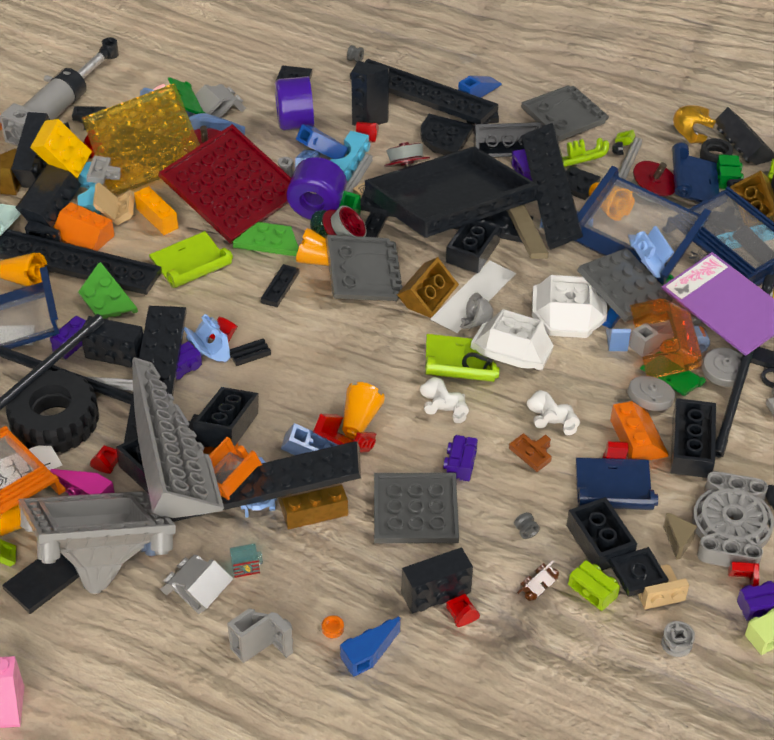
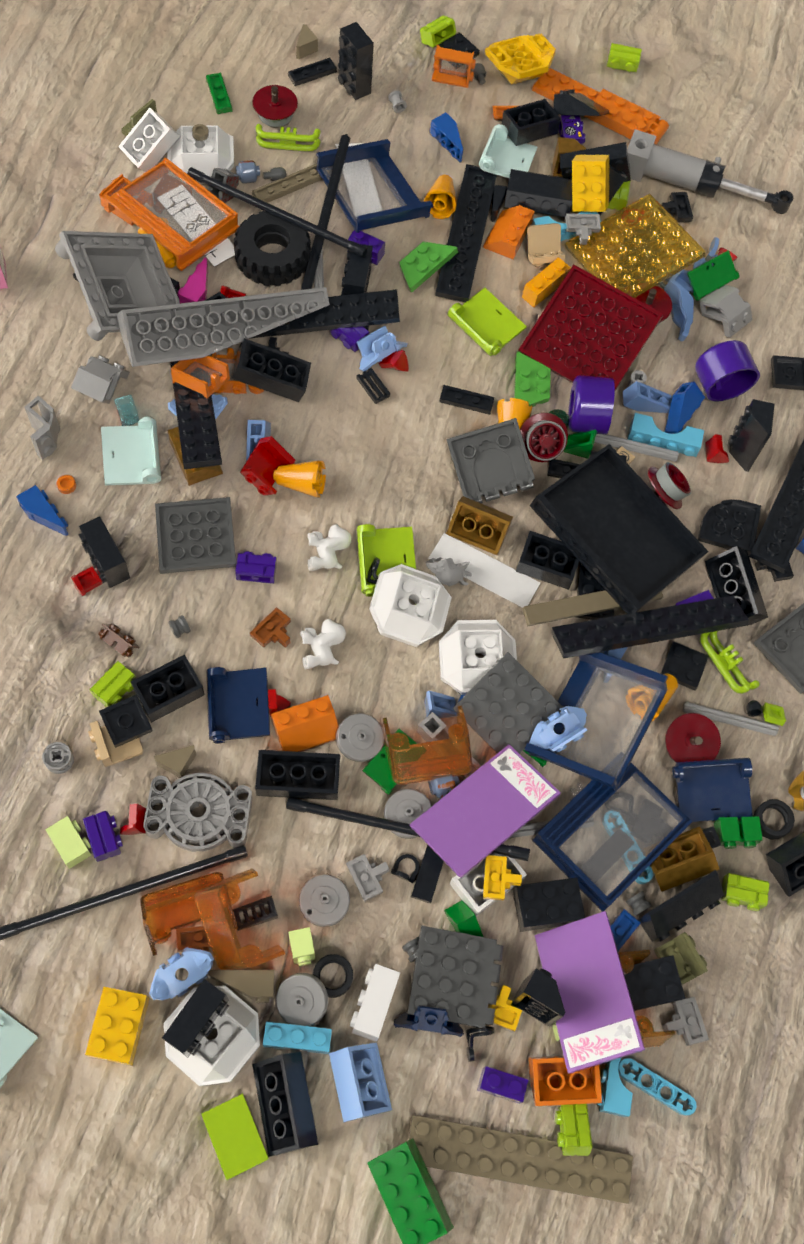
camera: 75 degrees right, 20 degrees up
(301, 559) = (135, 453): none -> light aqua door

